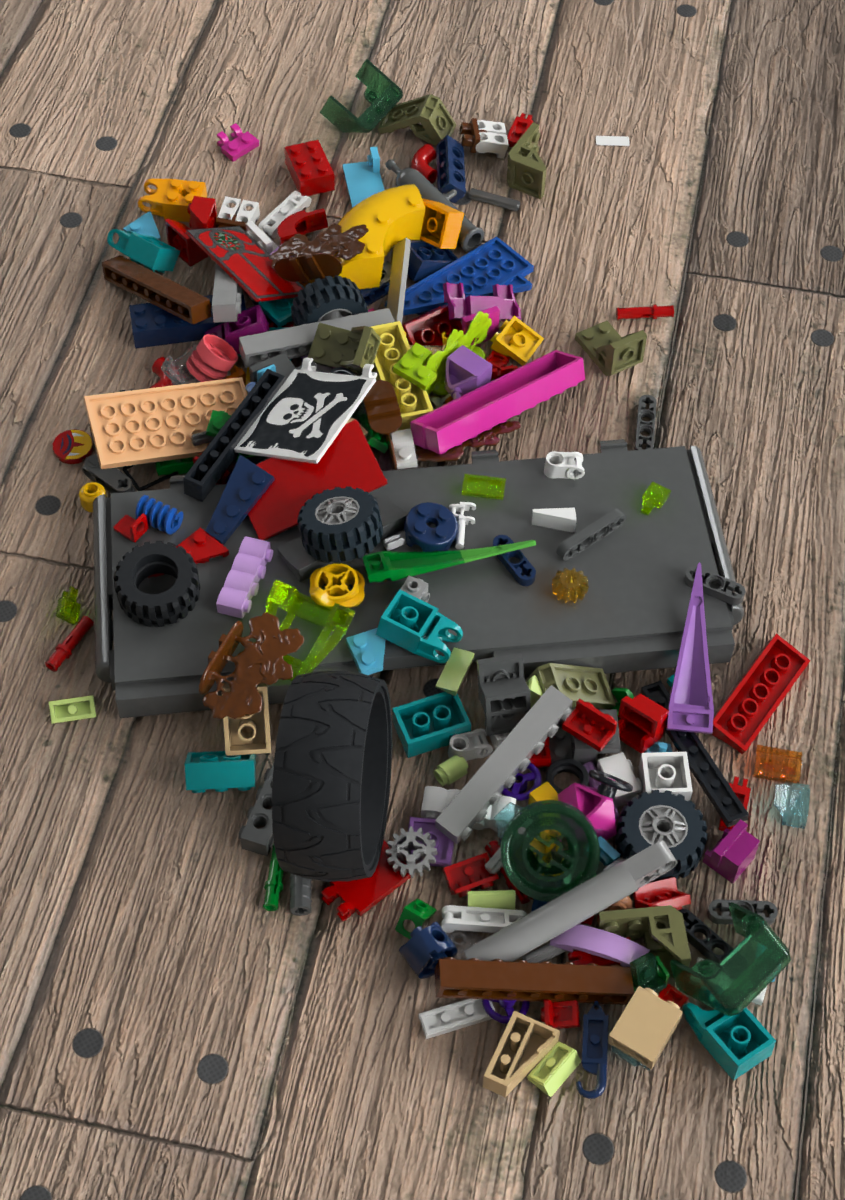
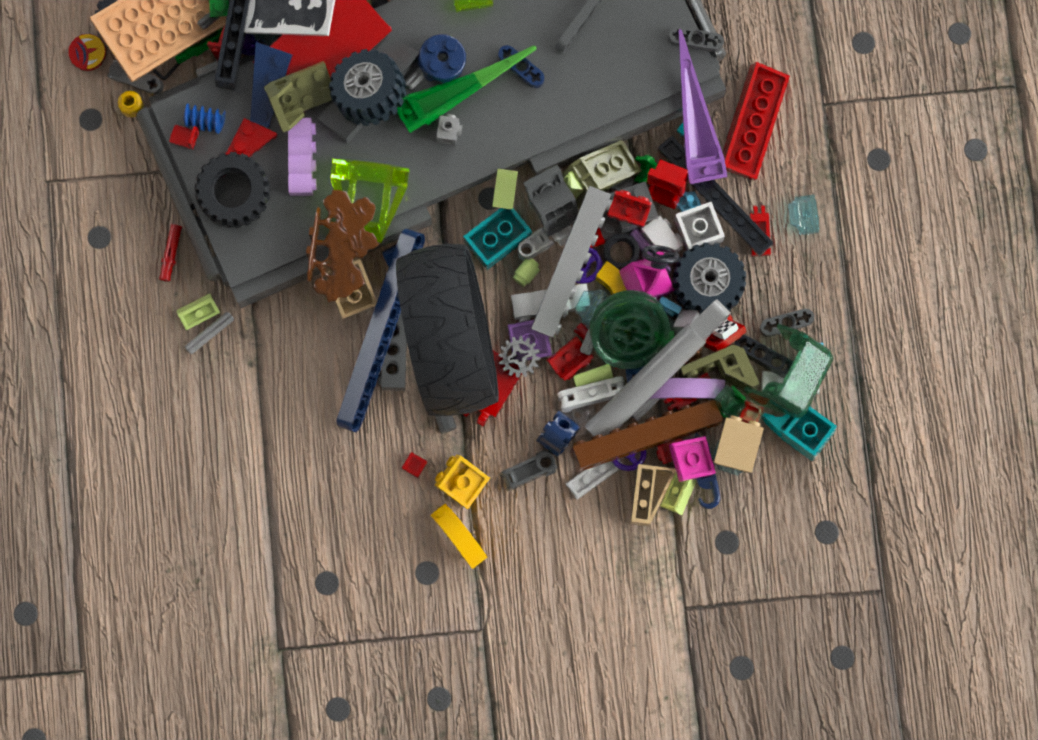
camera: 15 degrees left, 25 degrees up
(67, 606) = (154, 219): clear neon green plate -> none
(74, 732) = (209, 333): none -> light grey axle
(219, 771) = (338, 334): teal slope -> none
(228, 816) = (376, 340): none -> dark blue beam
(246, 939) = (414, 465): none -> red tile
(265, 513) = (298, 93): none -> olive bracket
(267, 1033) = (459, 535): none -> yellow arch
(273, 885) = (420, 415): green pin -> none
(293, 971) = (461, 480): none -> yellow plate
(337, 579) = (375, 160): yellow piece -> none
(367, 651) = (428, 193): medium azure wing -> none
(378, 984) = (528, 470): none -> dark grey piece
(416, 911) = (538, 403): green bracket -> none
(418, 627) = (468, 163): teal brick -> none
(462, 520) = (465, 41): white piece -> none
(555, 518) = (545, 14): white slope -> none
(570, 585) = (577, 72): clear yellow gear -> none
(582, 1026) = (692, 459): none -> dark pink tile
(664, 892) = (726, 329): none -> white tile
(732, 852) = (767, 276): magenta plate -> none
(777, 764) = (785, 183): clear orange plate -> none

